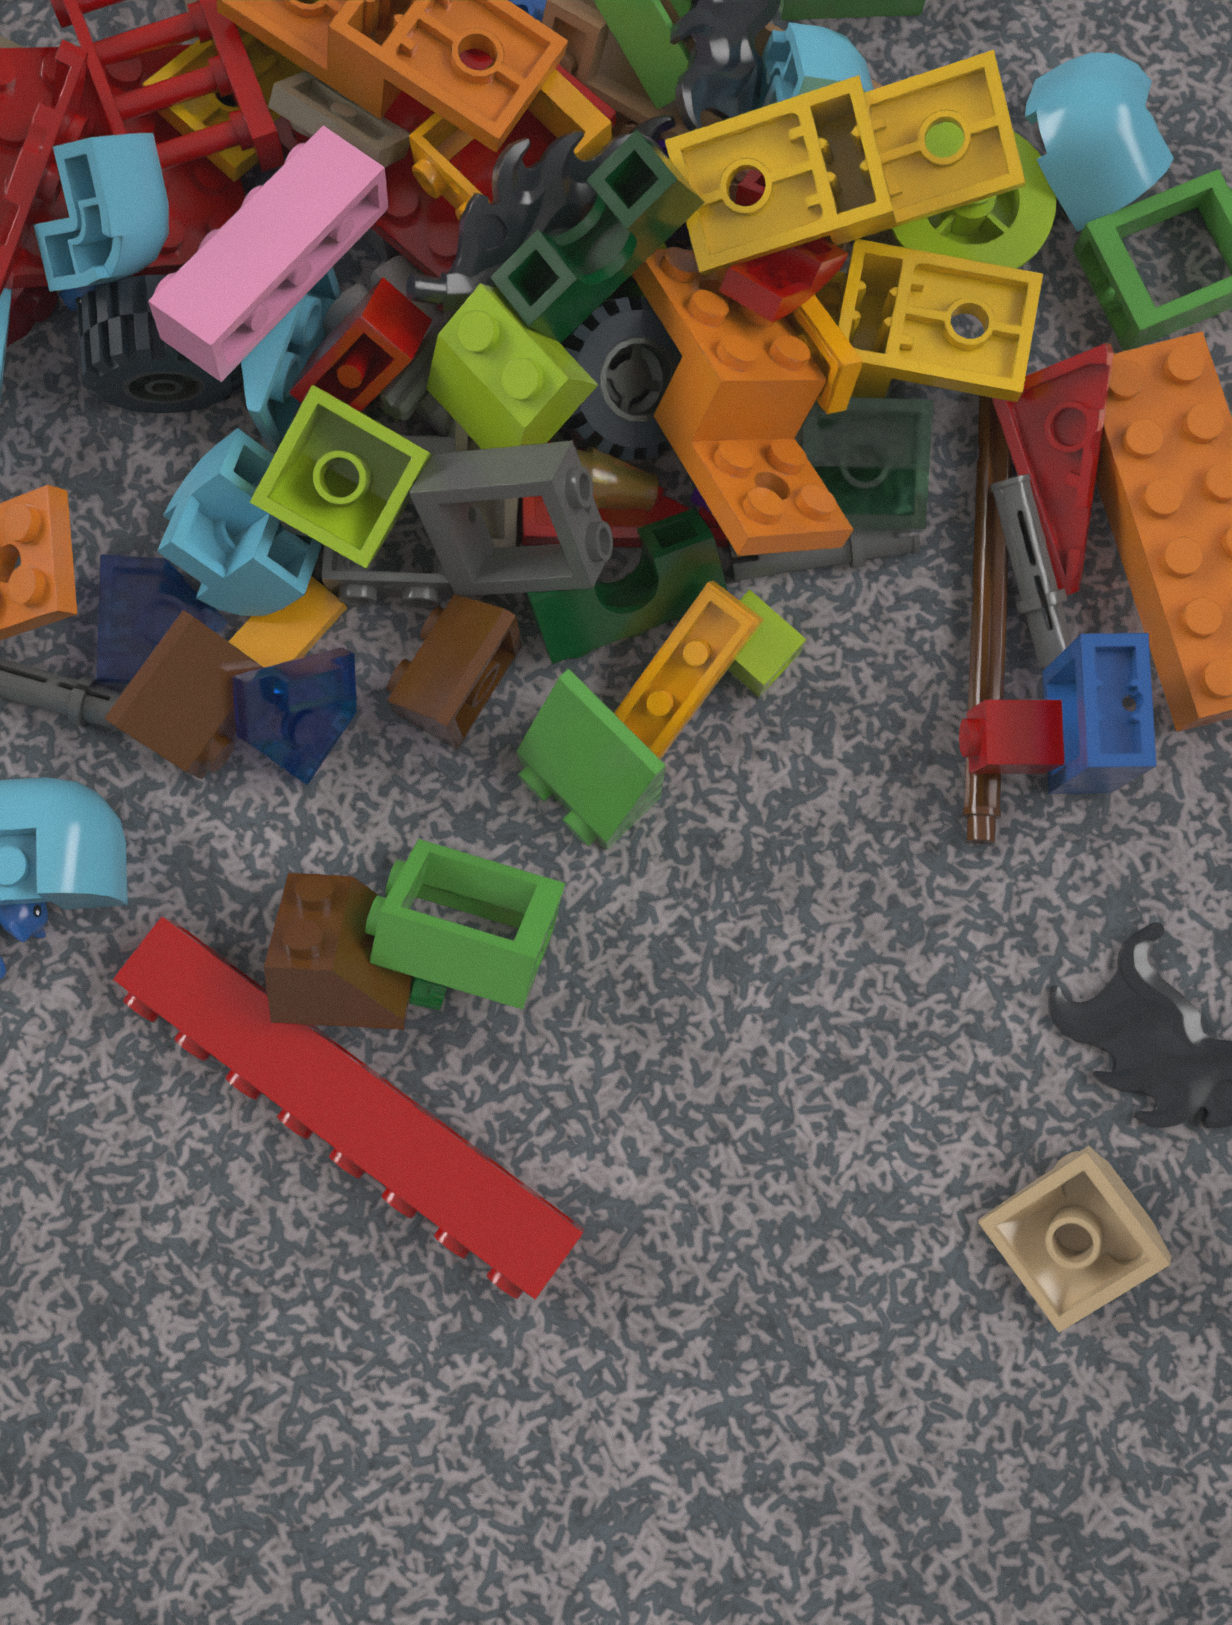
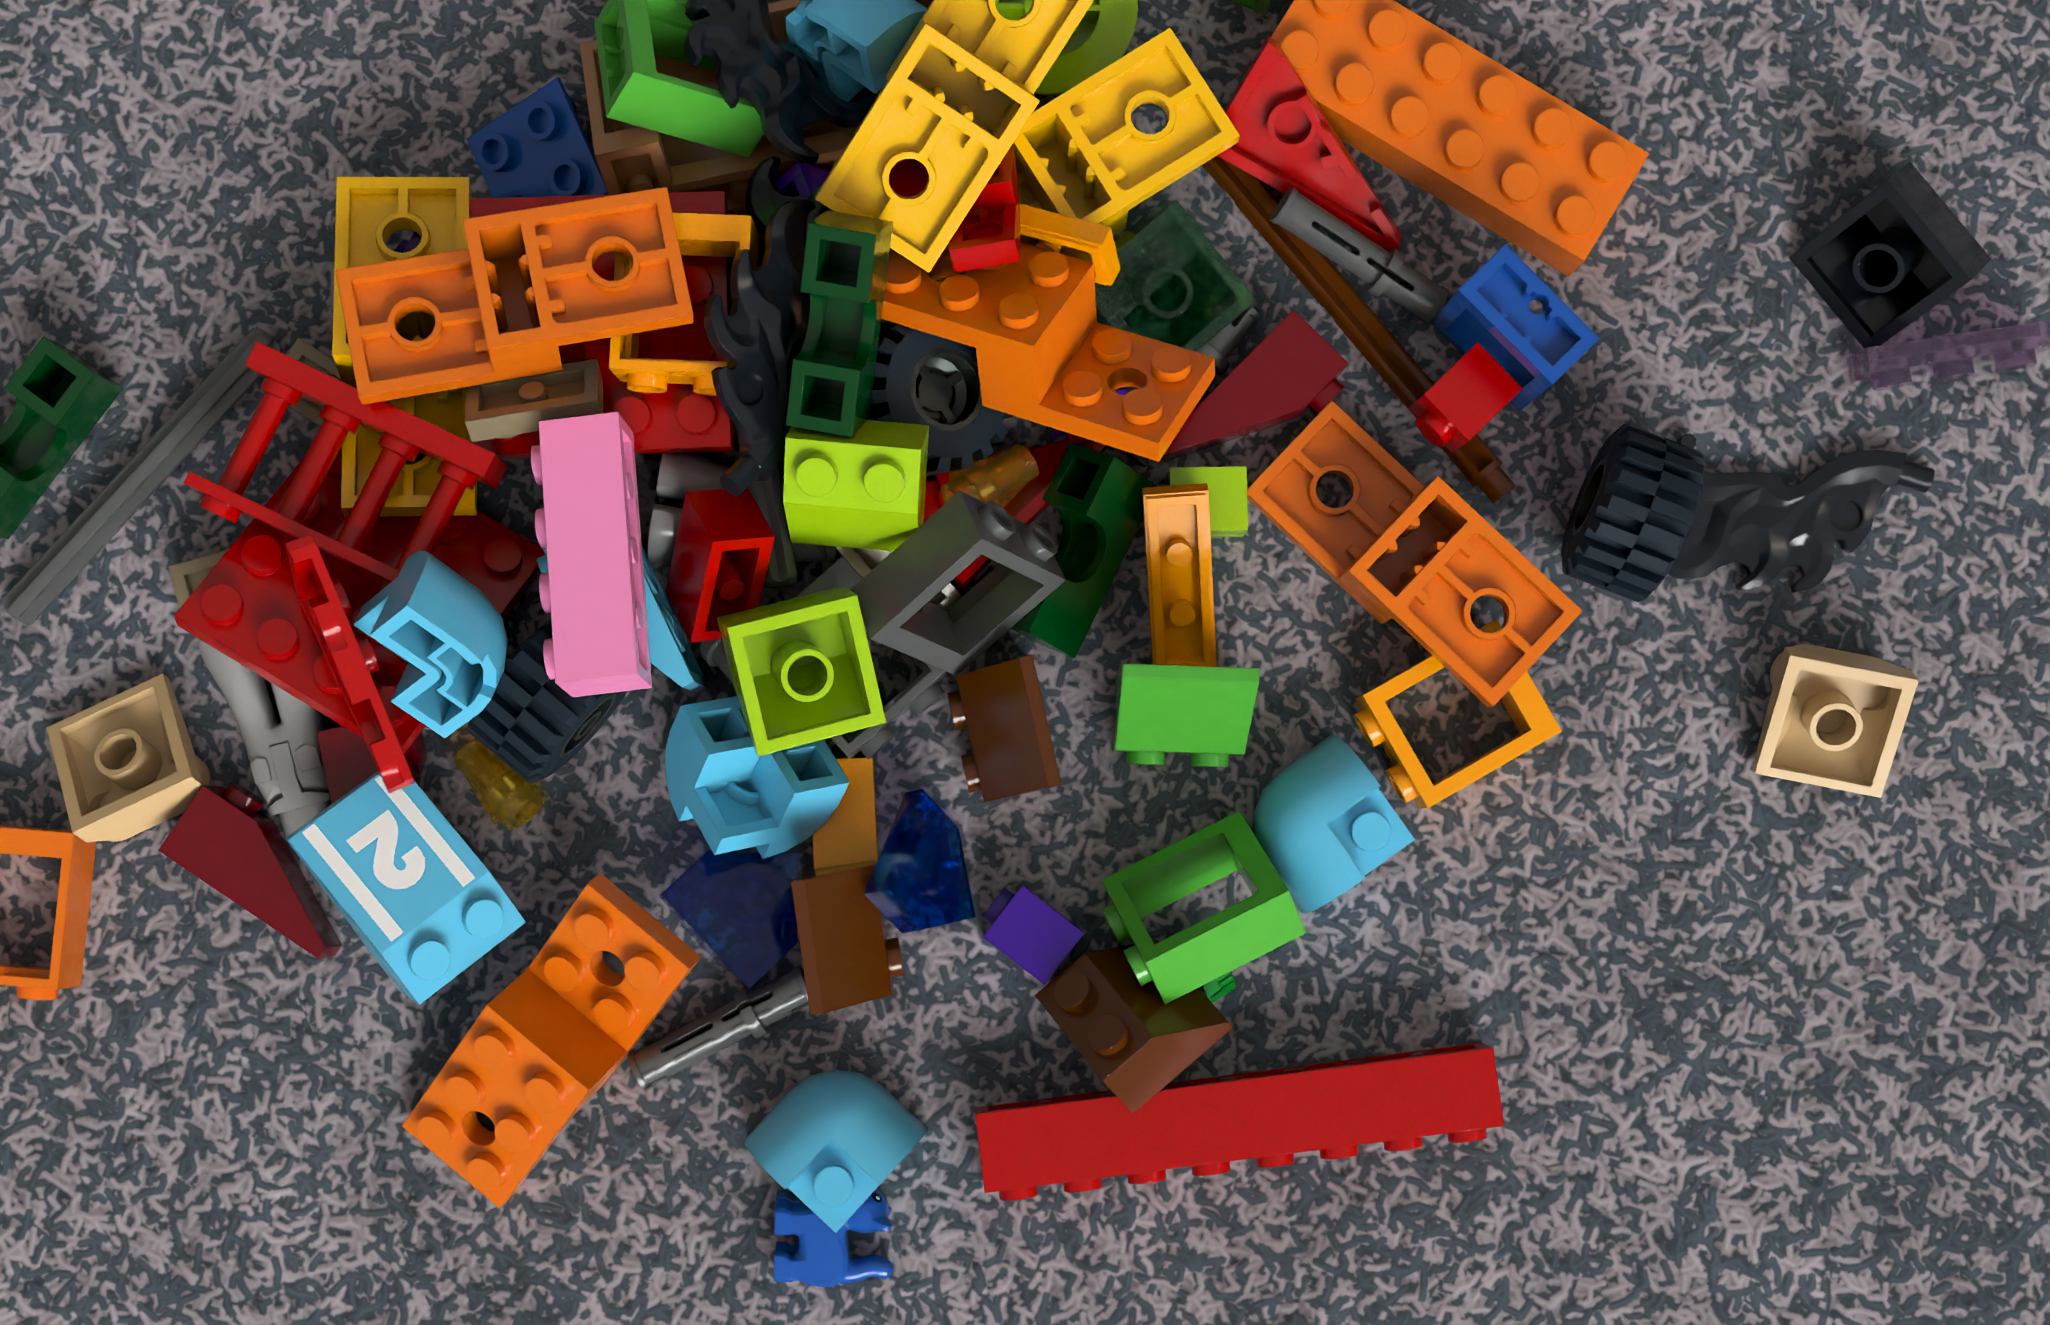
camera: 45 degrees left, 5 degrees up
(63, 395) = (499, 788): none -> clear yellow cone
(332, 828) = (1030, 932): none -> dark purple brick
(618, 952) = (1326, 824): none -> medium azure brick
(855, 979) = (1408, 775): none -> light orange window
(869, 815) = (1413, 554): none -> orange bracket
(874, 603) = (1267, 388): none -> dark red slope
(1064, 934) = (1633, 512): none -> black wheel

